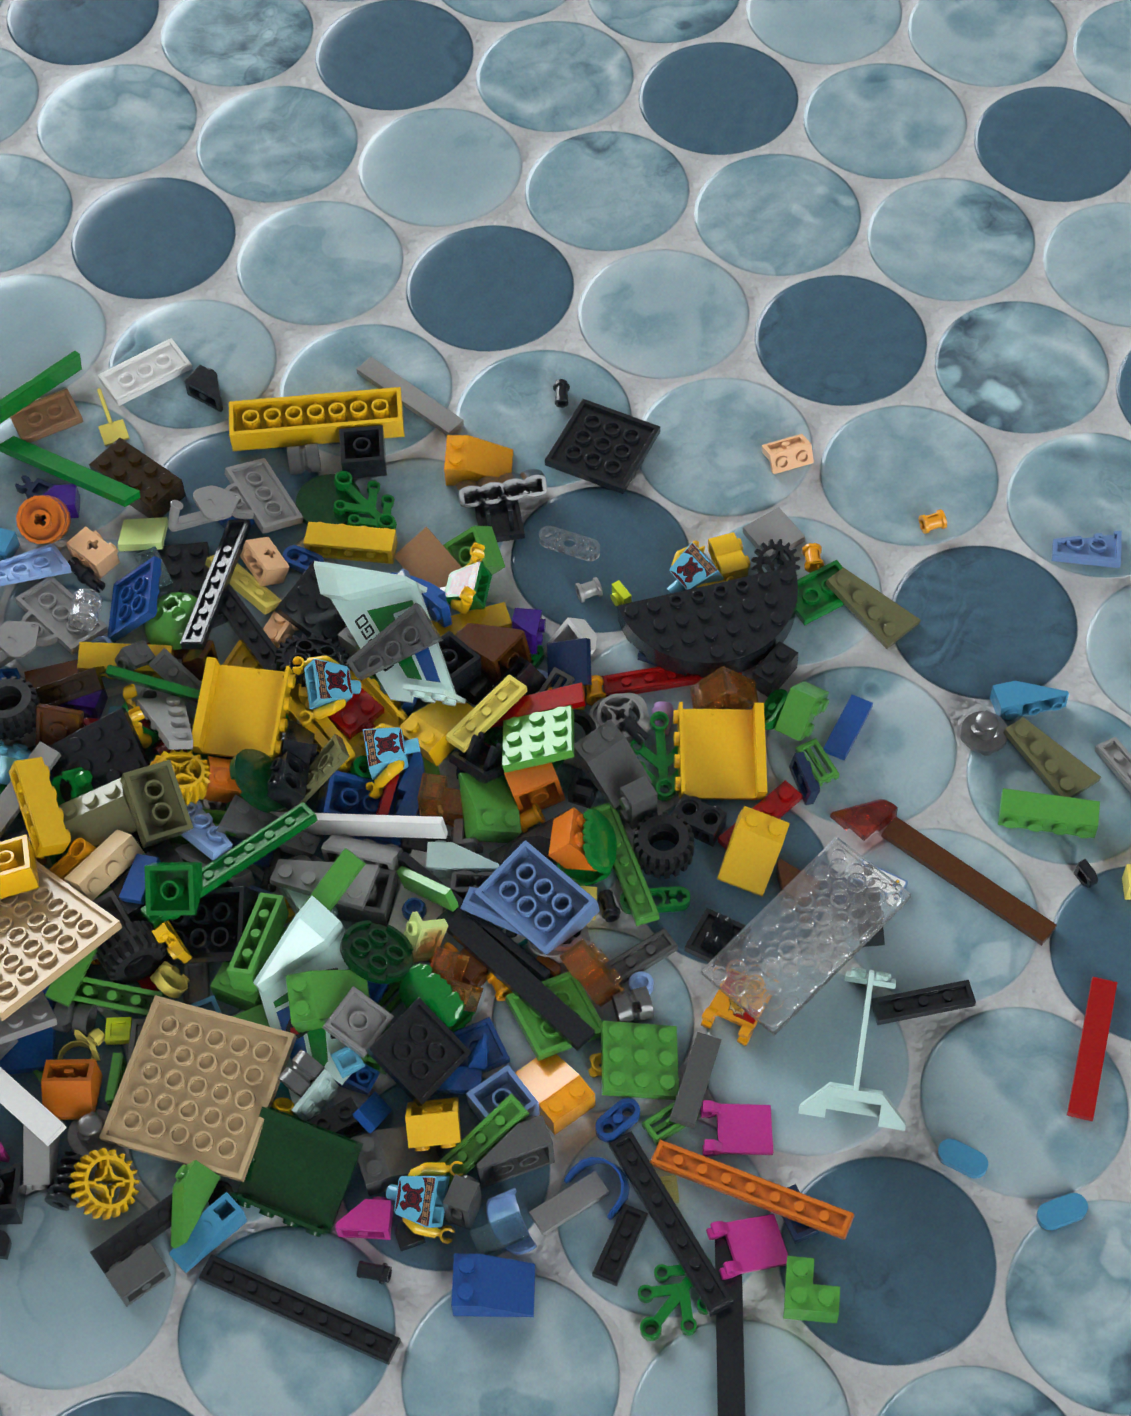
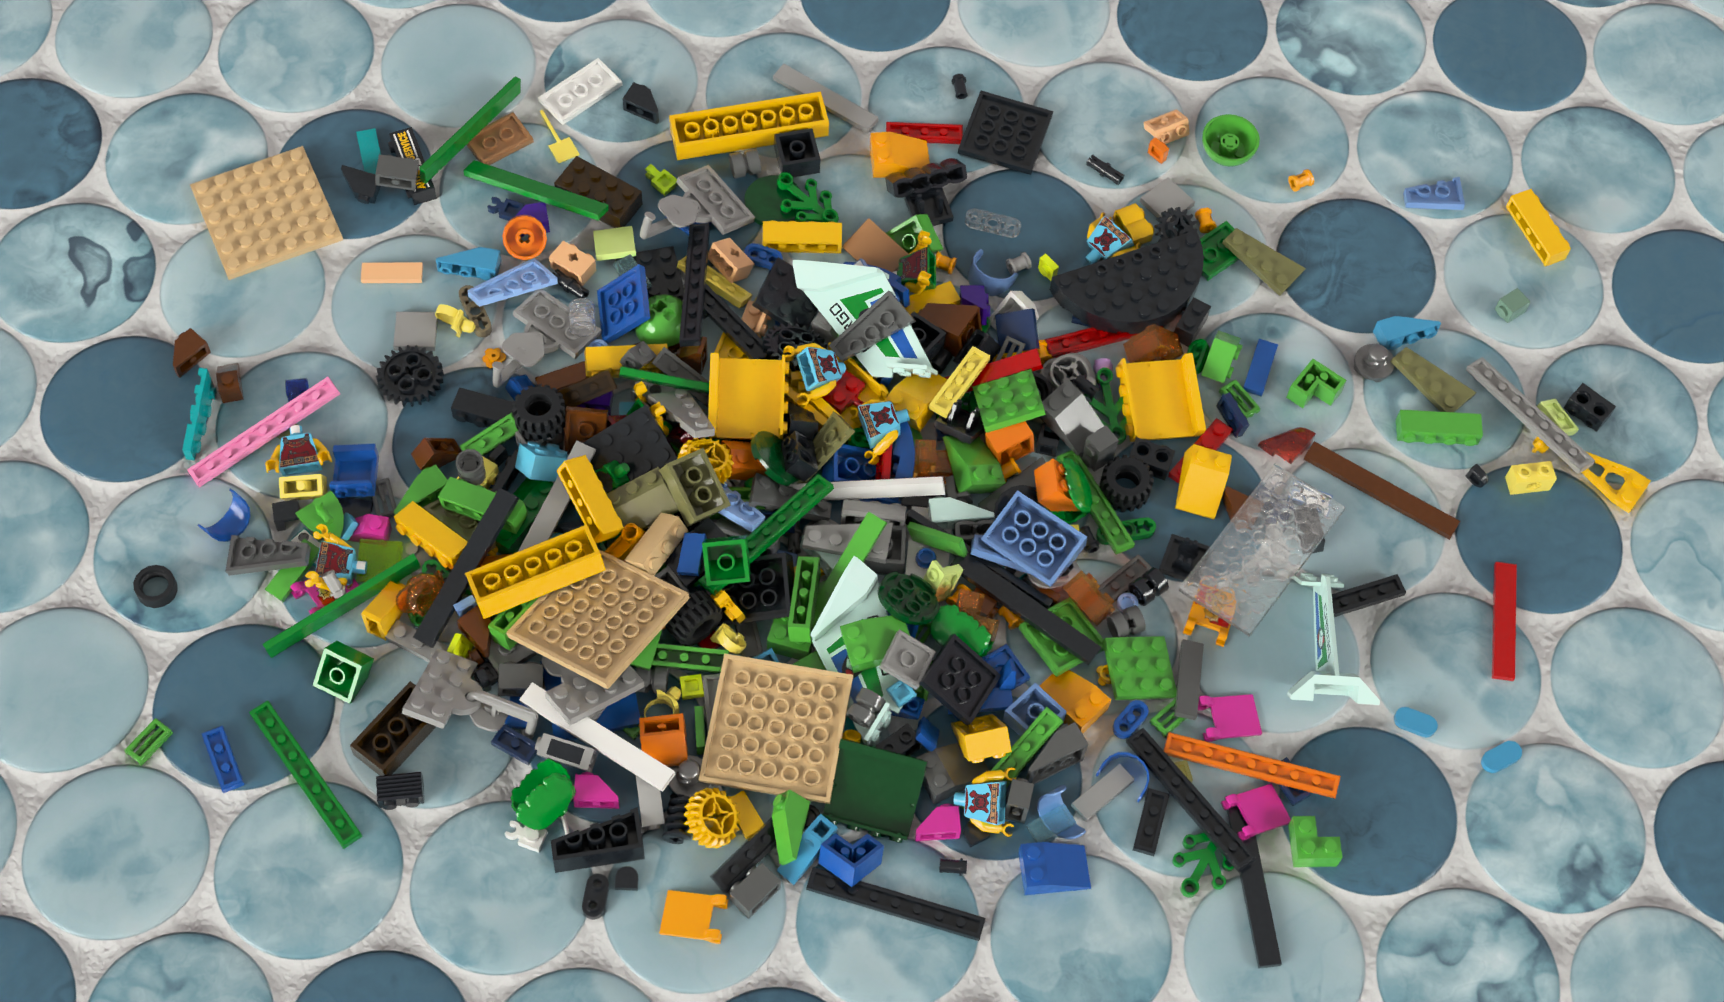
camera: 15 degrees left, 5 degrees up
(59, 1294) = (691, 914): none -> light orange flag
(150, 1186) = (748, 815): none -> yellow tile
(210, 472) = (662, 181): none -> lime plate
(253, 1252) = (851, 861): none -> blue brick
(504, 582) = (945, 263): none -> light orange bush
(517, 440) = (929, 132): none -> red tile
(552, 611) = (991, 285): none -> medium blue piece
(675, 962) = (1148, 586): none -> black wheel
(708, 494) = (1105, 169): none -> black pin
(772, 476) = (1158, 150): none -> orange plate
(854, 470) = (1230, 140): none -> bright green piece
(908, 747) = (1316, 381): none -> bright green brick

